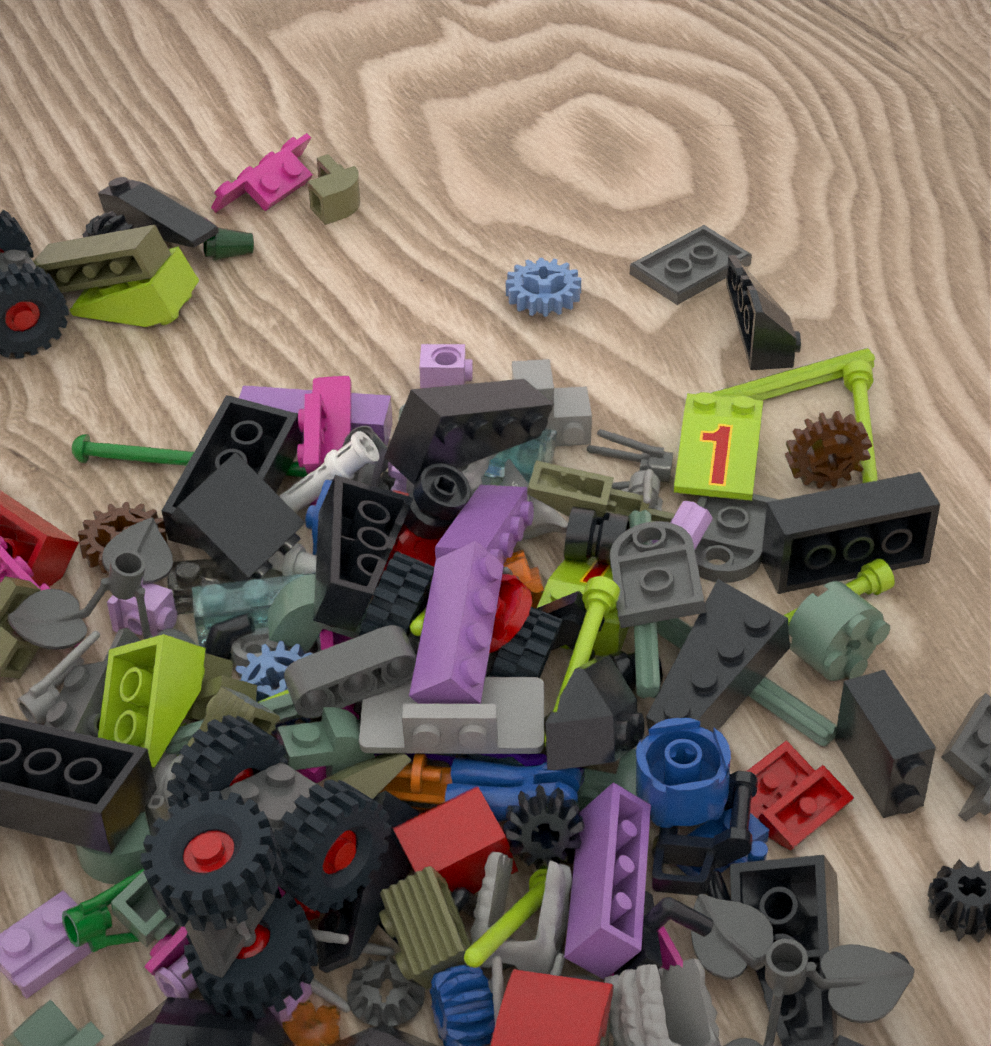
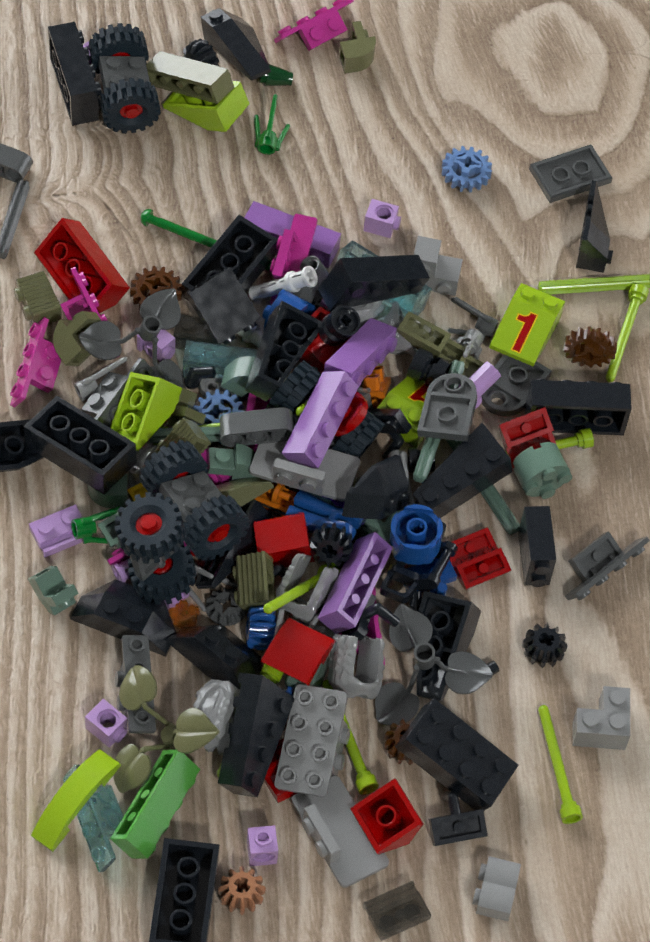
camera: 10 degrees right, 15 degrees up
(240, 316) = (268, 142): none -> green plant
(599, 599) = (409, 417): lime piece -> none
(790, 578) = (526, 432): none -> red slope

